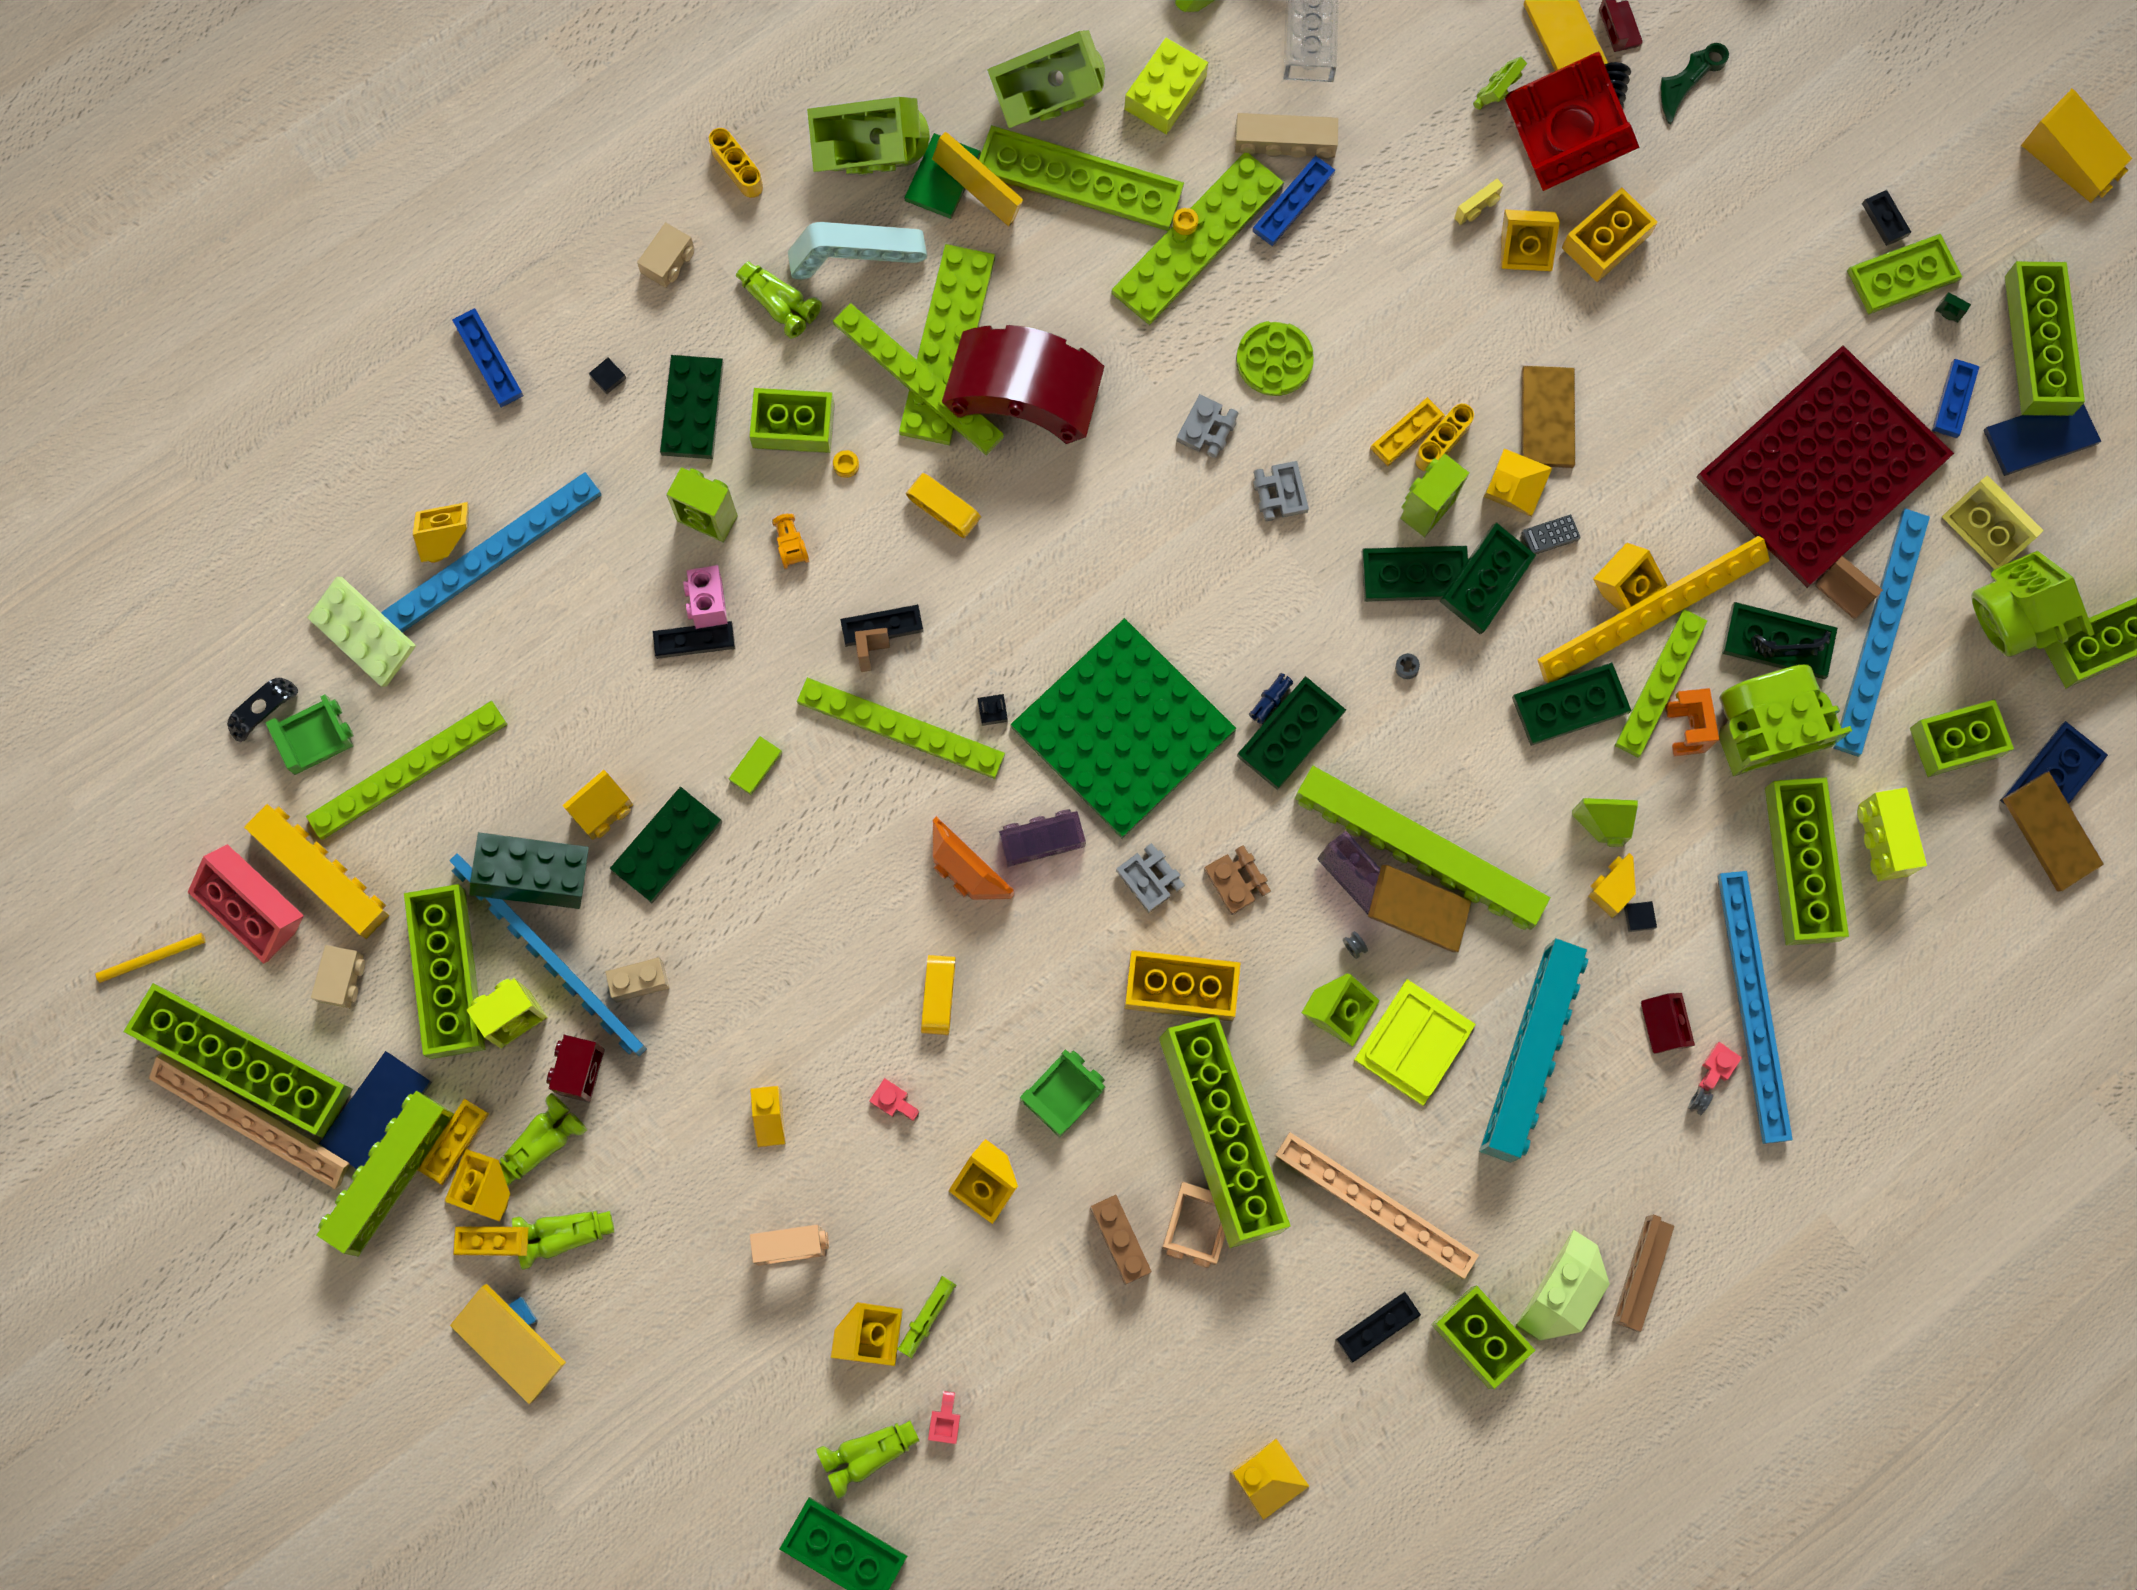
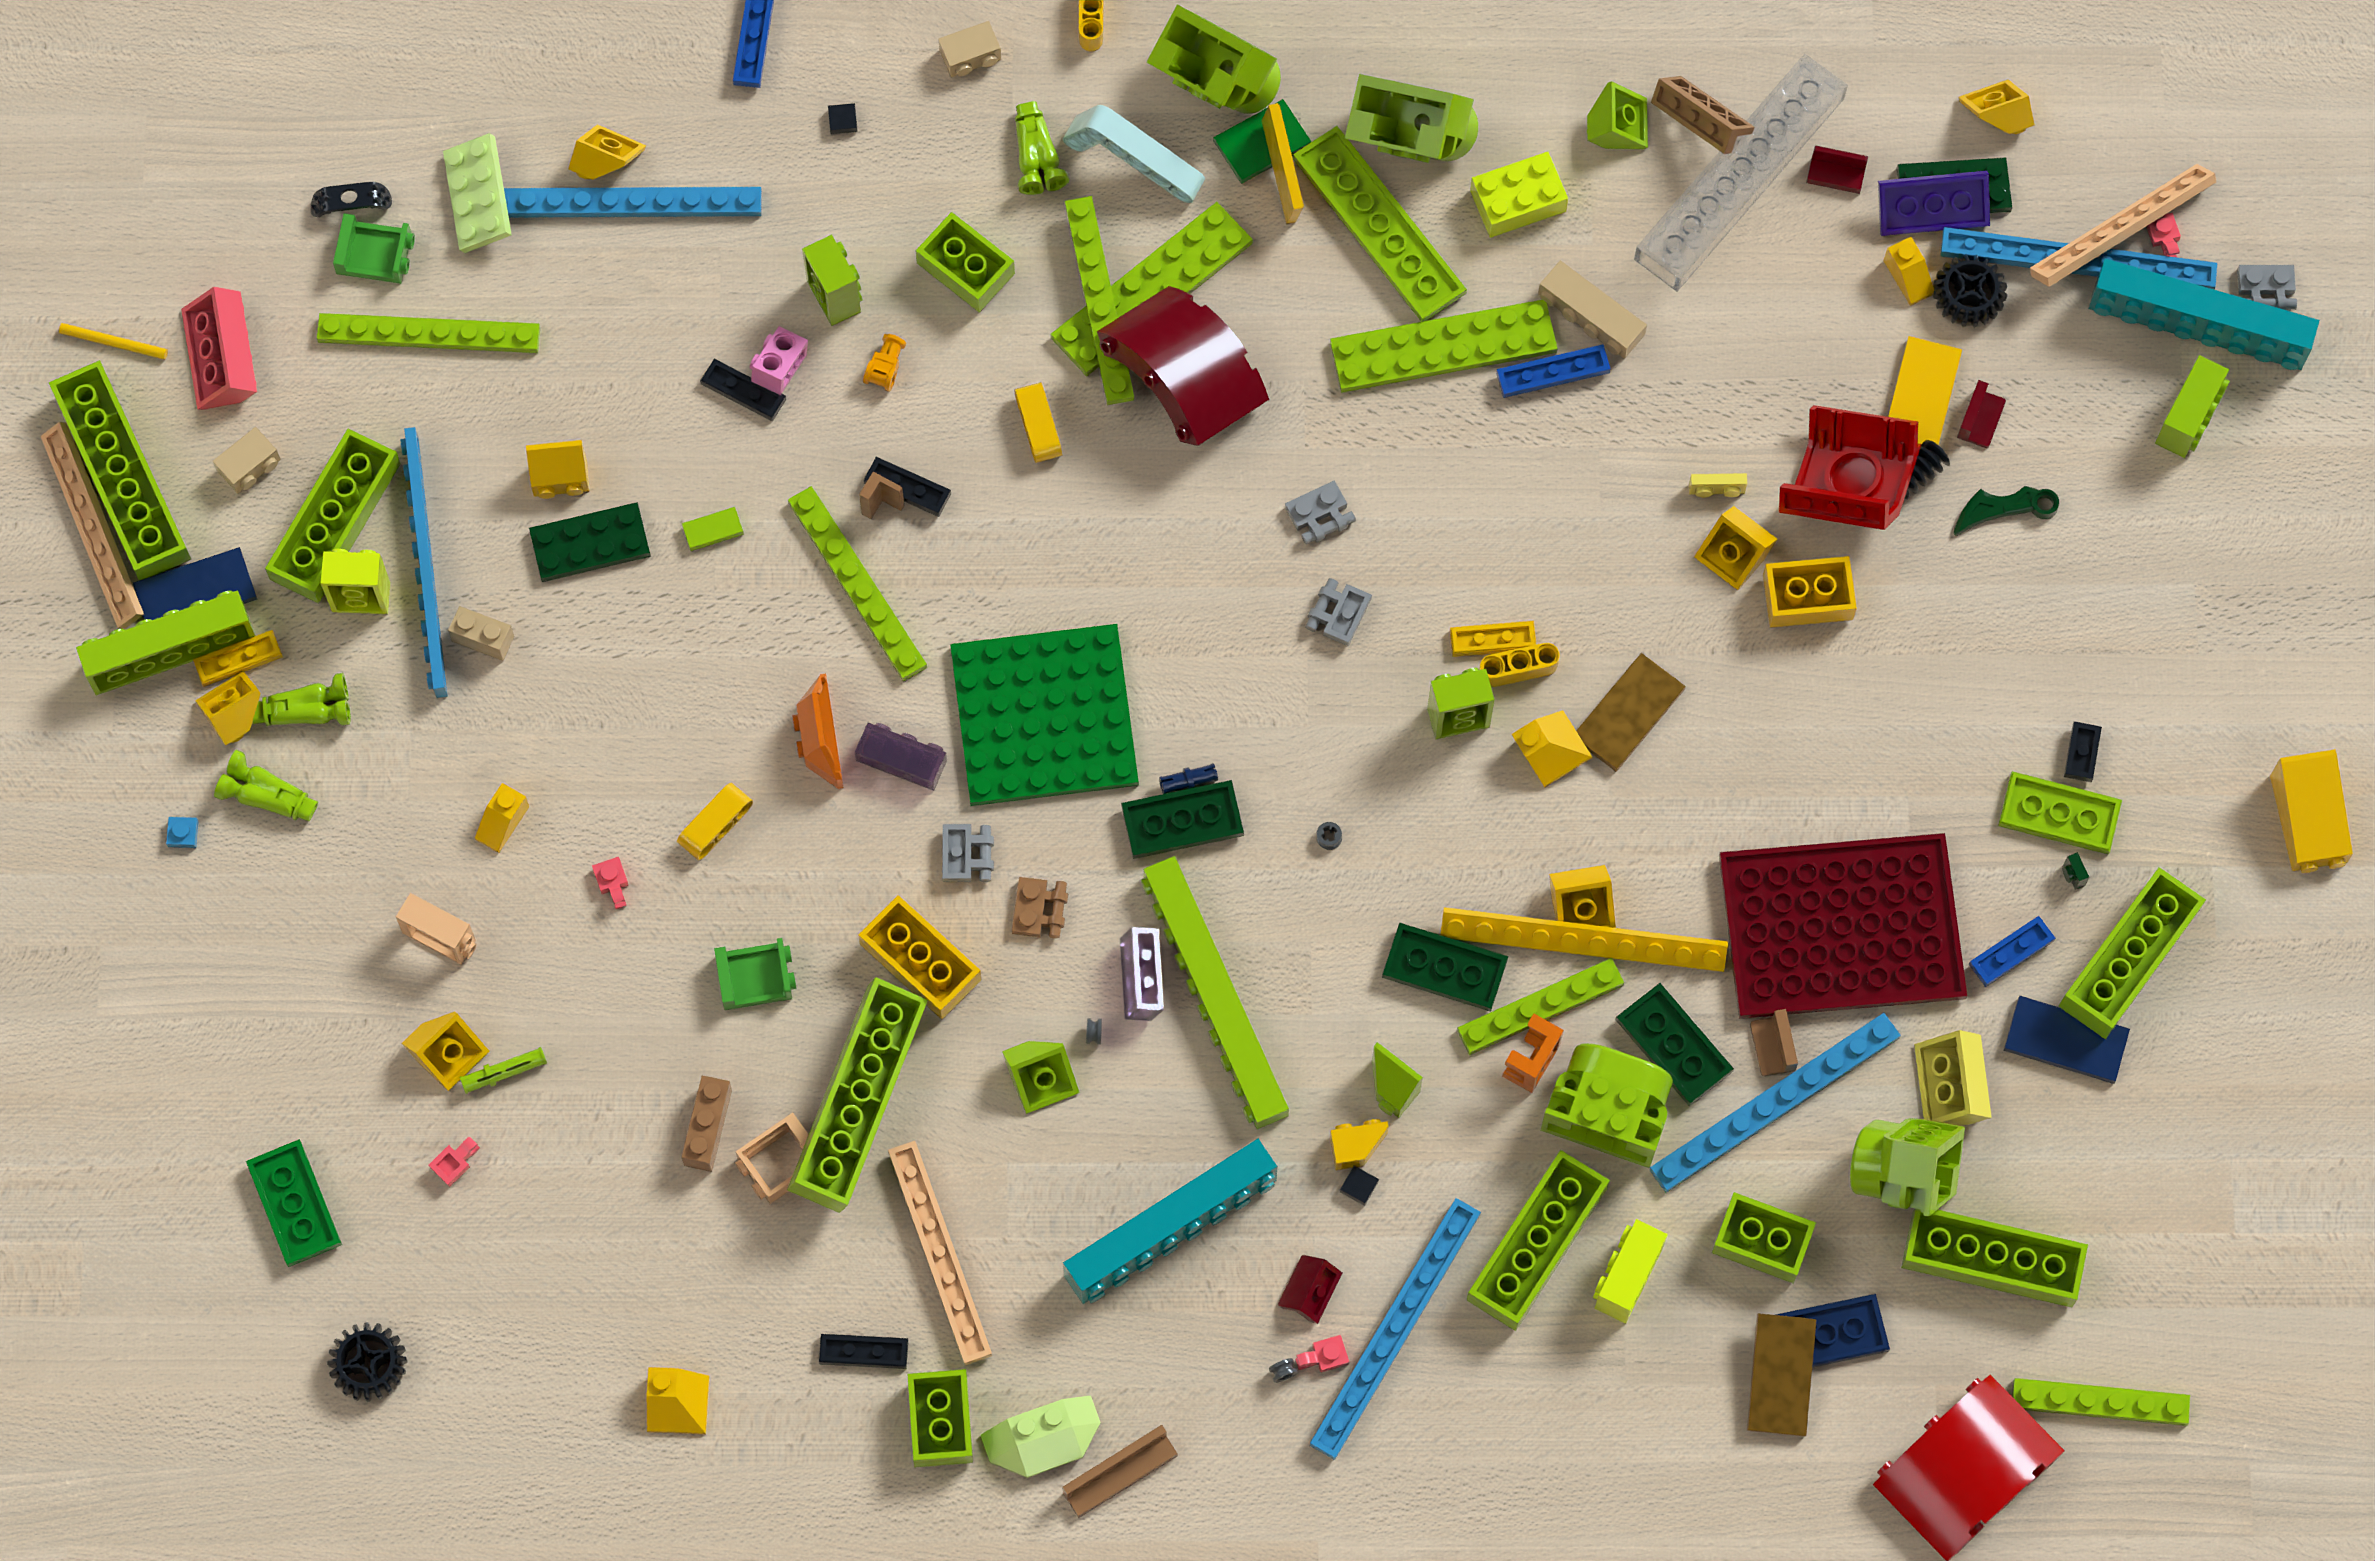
camera: 40 degrees right, 5 degrees down
(316, 871) = (294, 363): yellow brick -> none
(491, 1241) = (206, 755): yellow tile -> none
(507, 1343) = (158, 846): yellow tile -> none
(528, 870) = (461, 481): dark green brick -> none
(575, 1068) = (377, 667): dark red brick -> none
(691, 407) = (893, 193): dark green plate -> none
(845, 464) = (985, 331): yellow tile -> none
(866, 1455) = (369, 1140): lime piece -> none
(985, 1181) = (634, 995): yellow slope -> none
(992, 709) = (945, 622): black tile -> none
(1185, 221) = (1439, 323): yellow tile -> none
(1274, 358) = (1427, 496): lime tile -> none
(1410, 572) = (1399, 762): dark green plate -> none
(1415, 1042) = (1081, 1148): neon yellow piece -> none
(1419, 908) = (1168, 1037): pearl gold tile -> none
(1487, 578) = (1455, 808): dark green plate -> none
(1499, 83) = (1809, 396): lime plate -> none
(1551, 534) = (1546, 814): dark grey tile -> none
(1771, 649) = (1693, 1067): black piece -> none

